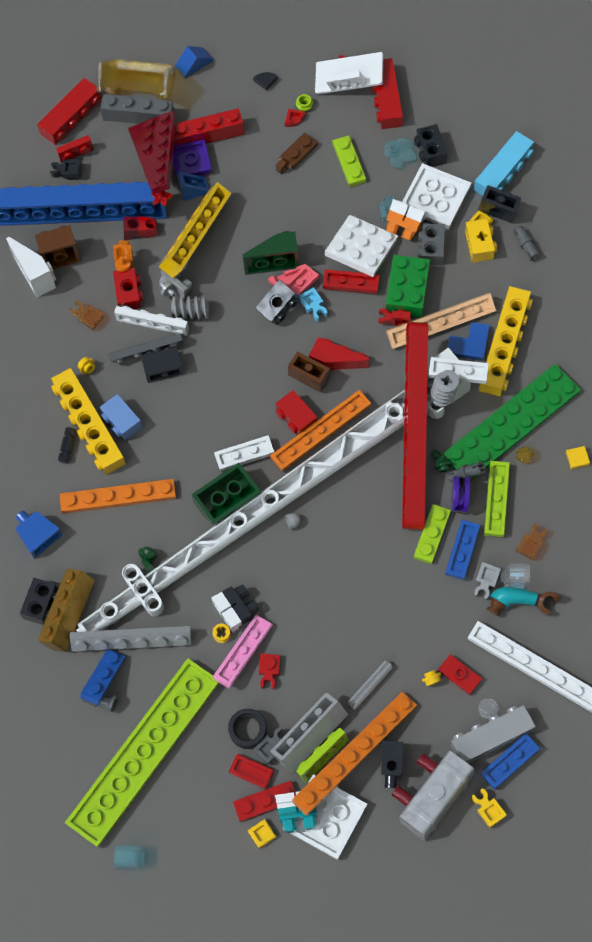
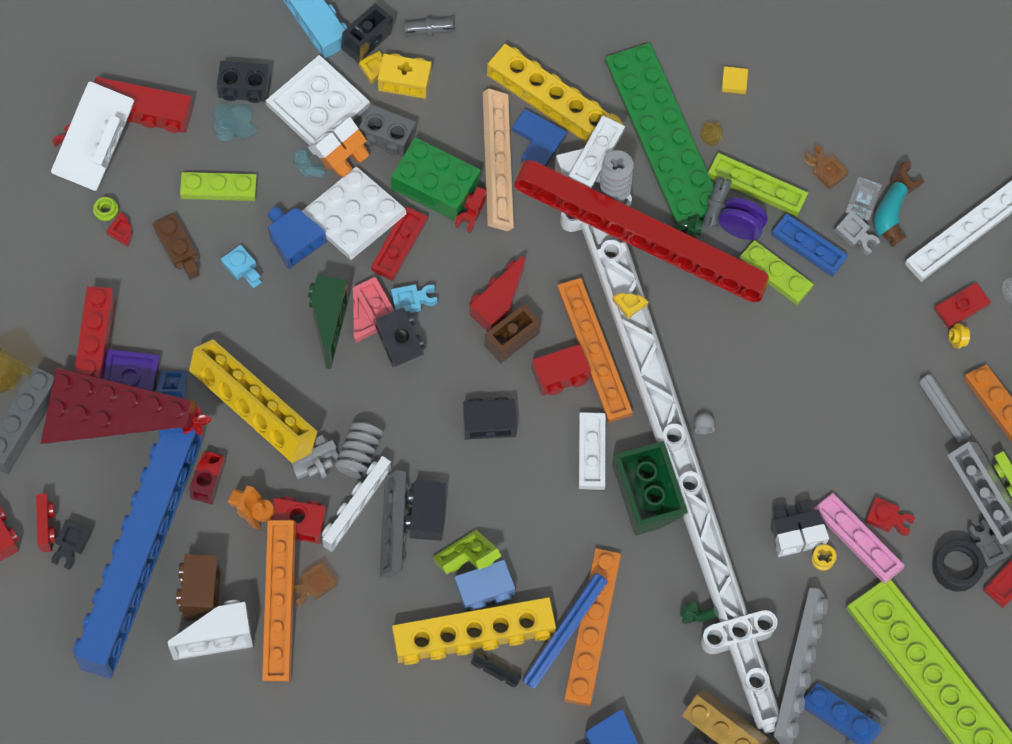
camera: 80 degrees left, 0 degrees up
(66, 296) = (279, 601): none -> orange plate
(86, 365) = (390, 608): yellow plate -> none
(106, 477) = (564, 630): none -> blue axle
(139, 398) = (470, 548): none -> lime plate
(242, 380) = (489, 418): none -> black brick
(265, 79) = (45, 245): black tile -> none
(296, 194) = (240, 265): none -> medium azure plate
(328, 215) = (294, 235): none -> blue torso
(356, 435) = (629, 303): none -> yellow tile

